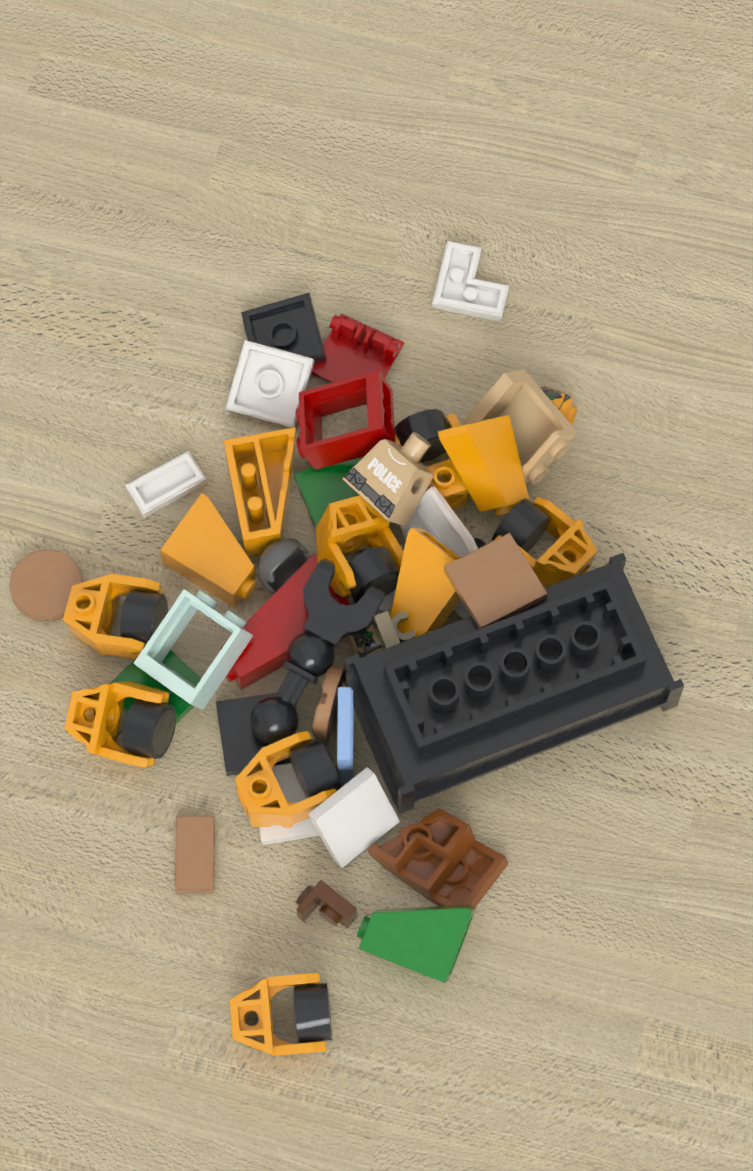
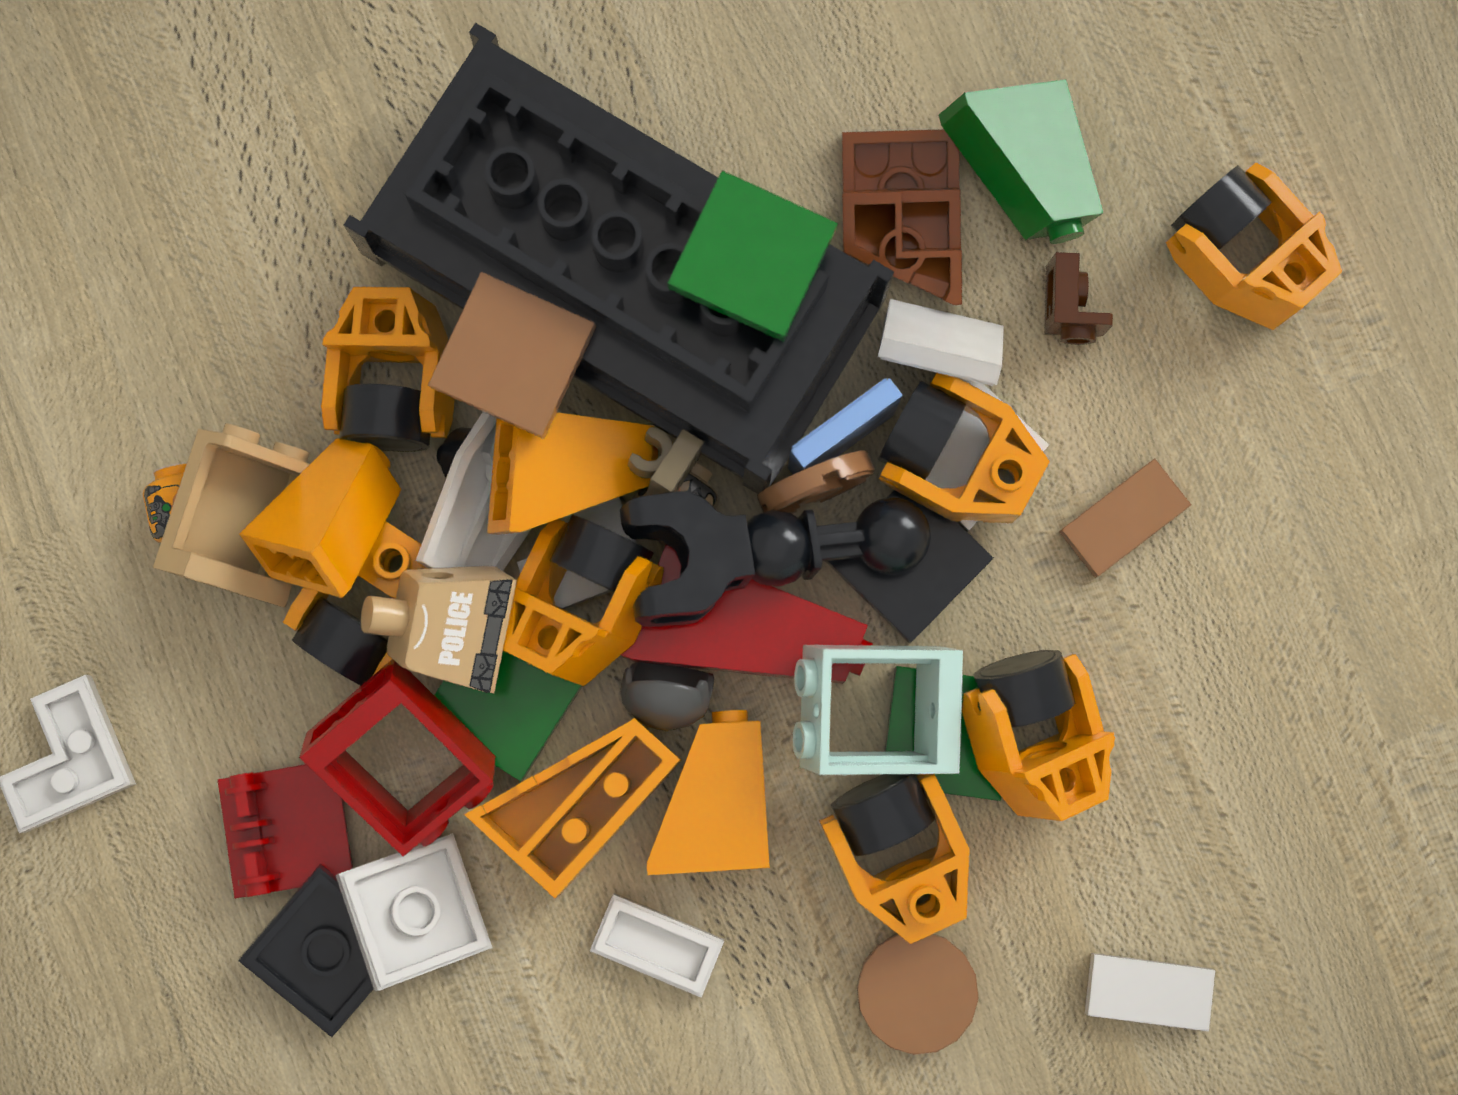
camera: 125 degrees left, 15 degrees up
(454, 714) = (752, 255): none -> green tile

